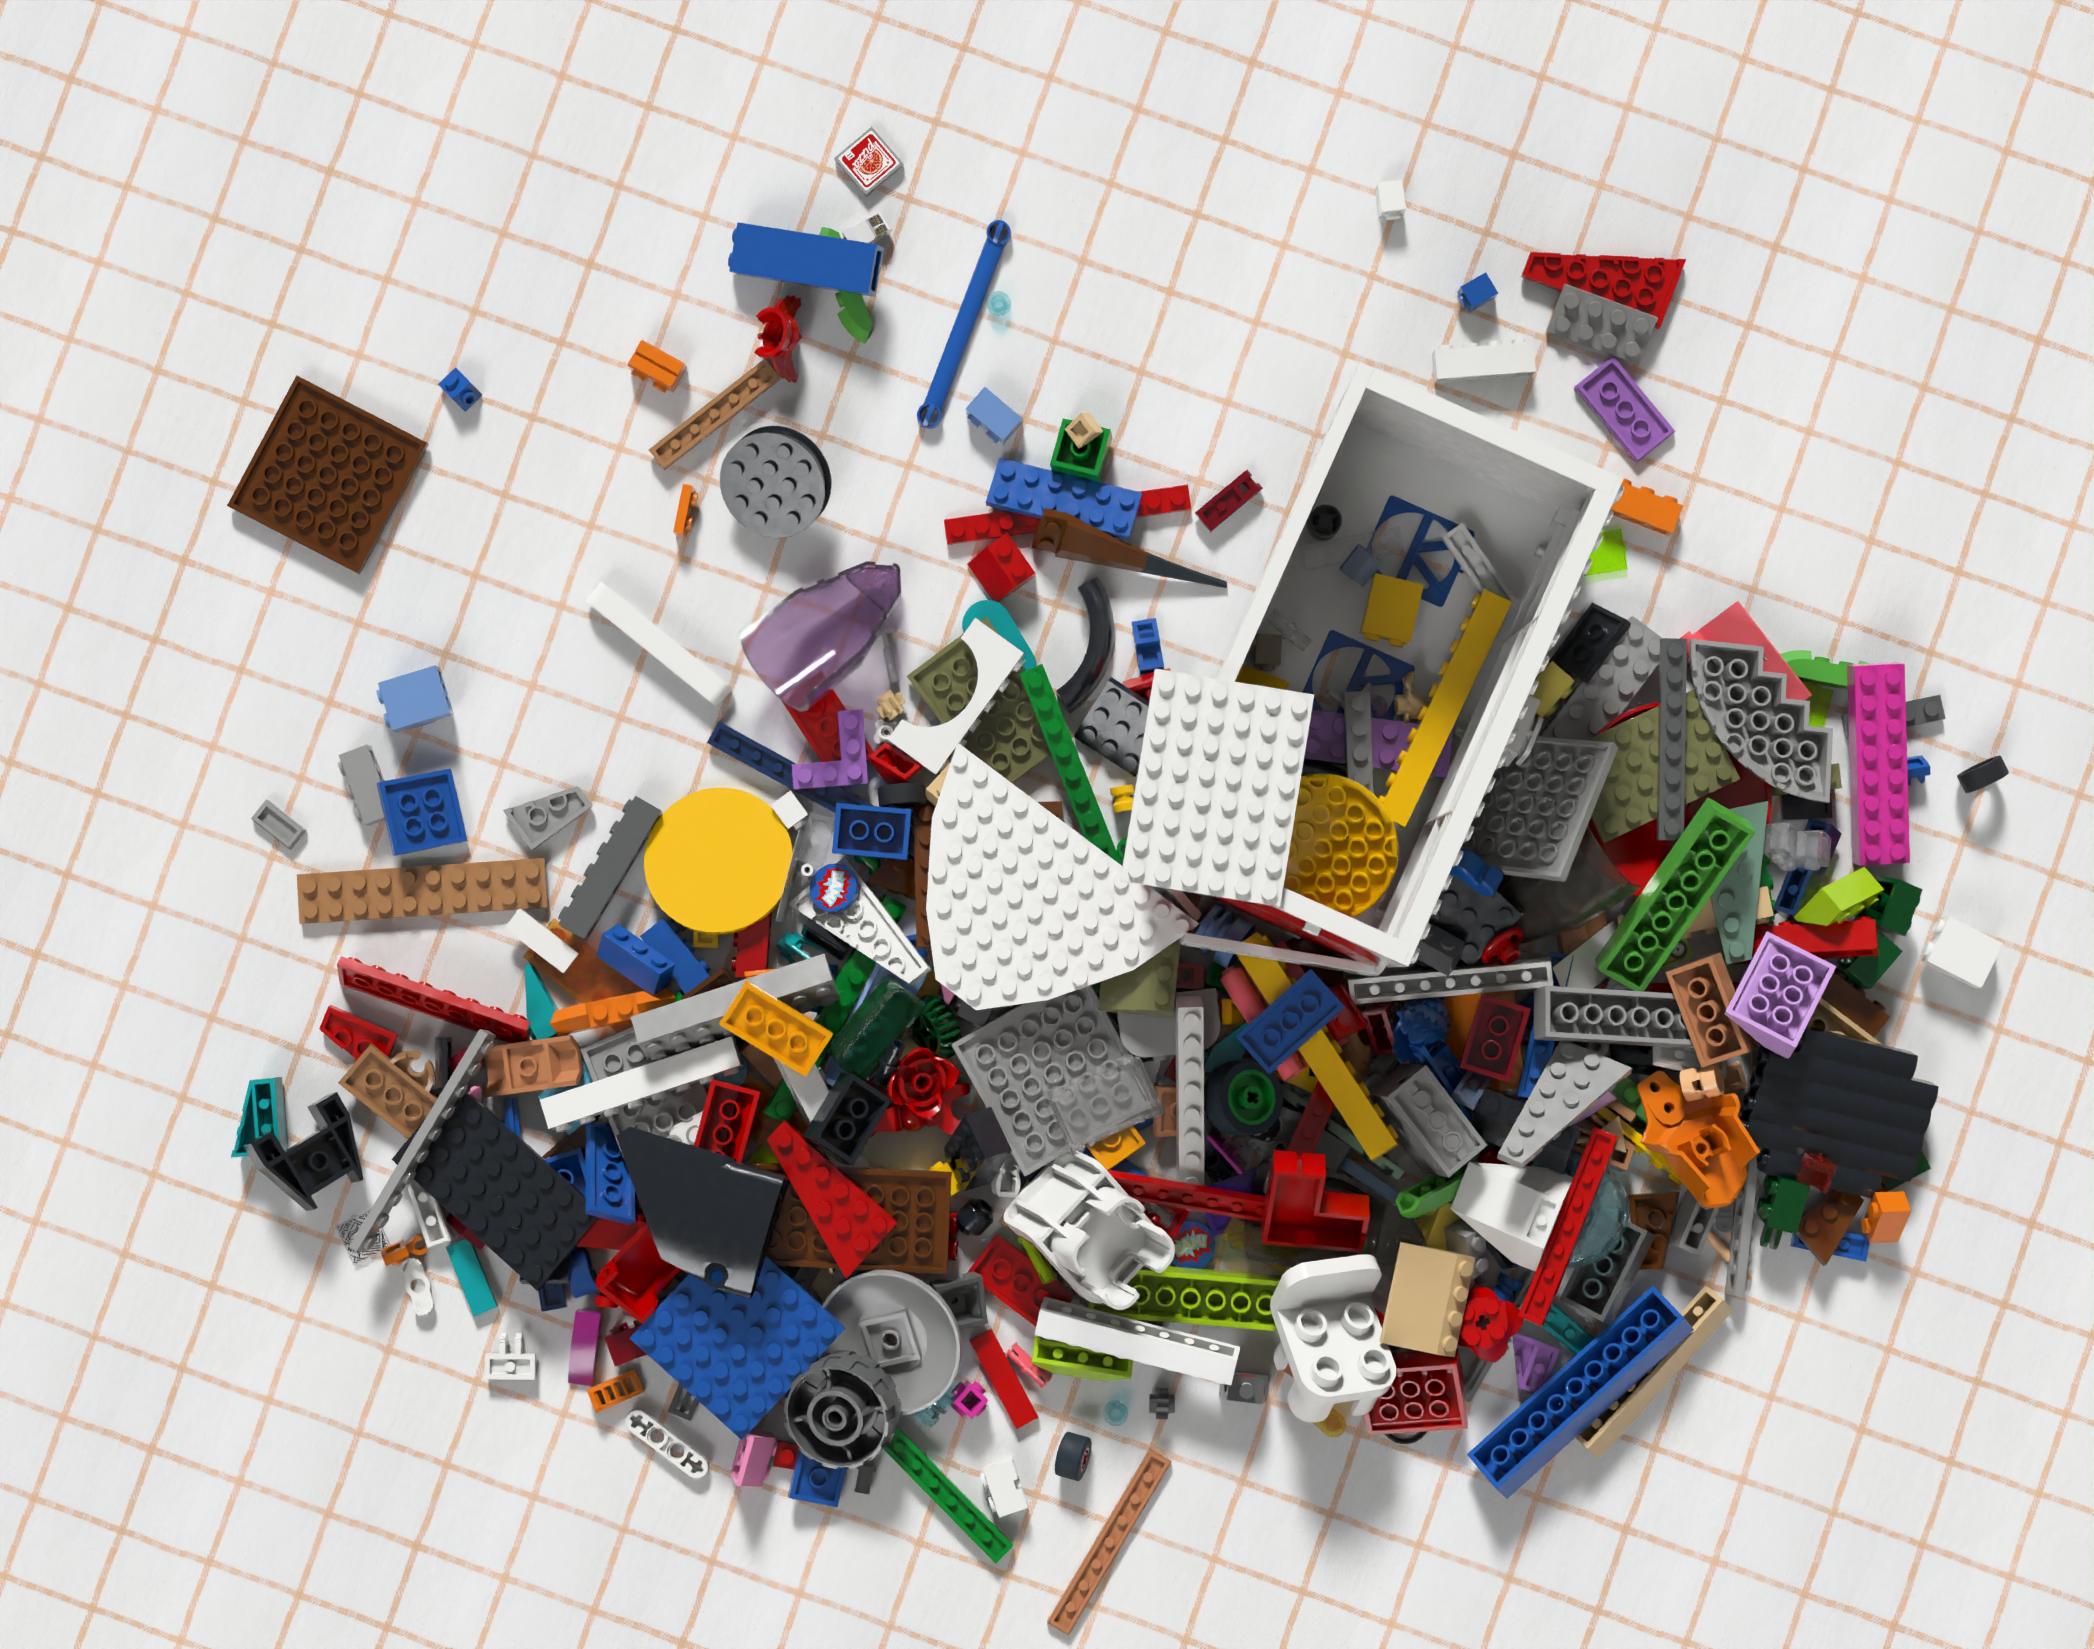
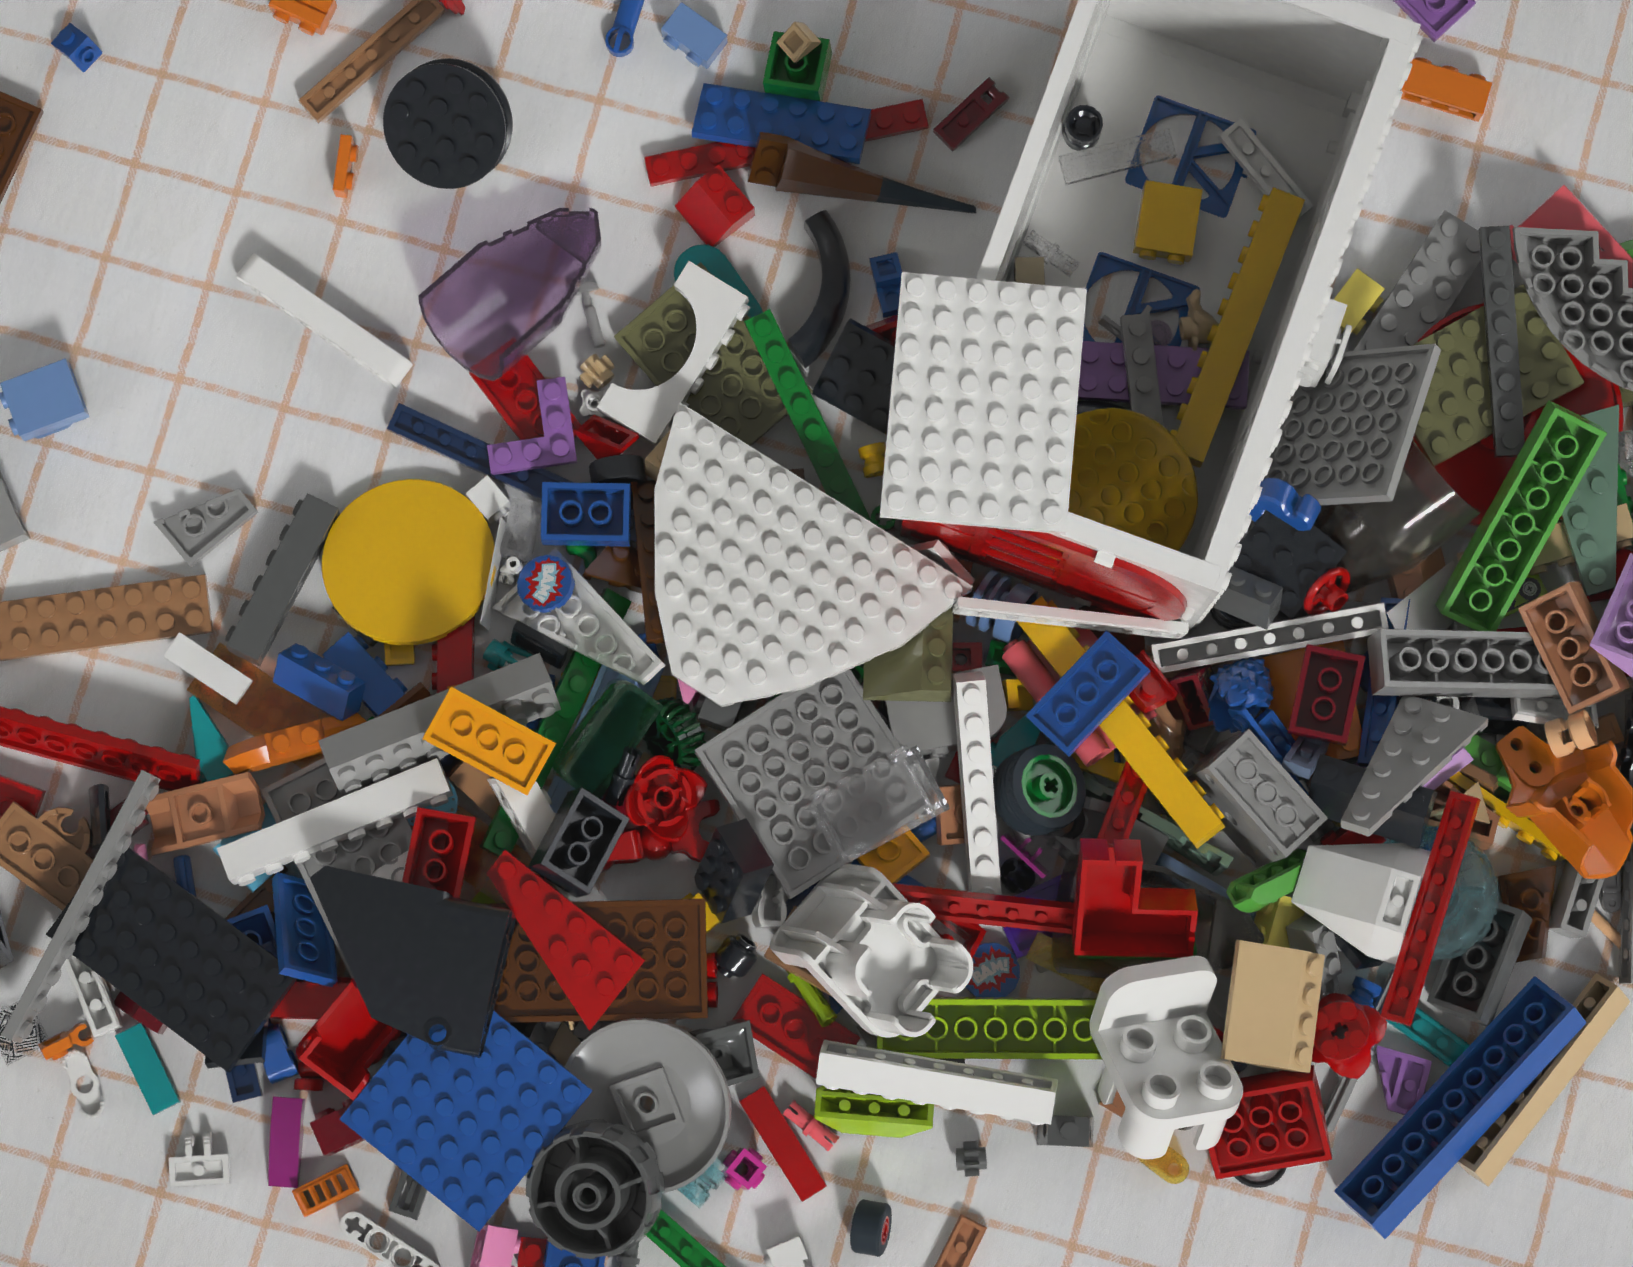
camera: 10 degrees left, 5 degrees down
(421, 812) = (59, 529): blue plate -> none
(1115, 1421) = (907, 1177): clear light blue plate -> none
(1360, 565) = (1128, 173): sand blue piece -> none
(1590, 642) = (1399, 244): black tile -> none
(1609, 555) = (1407, 145): clear neon green piece -> none

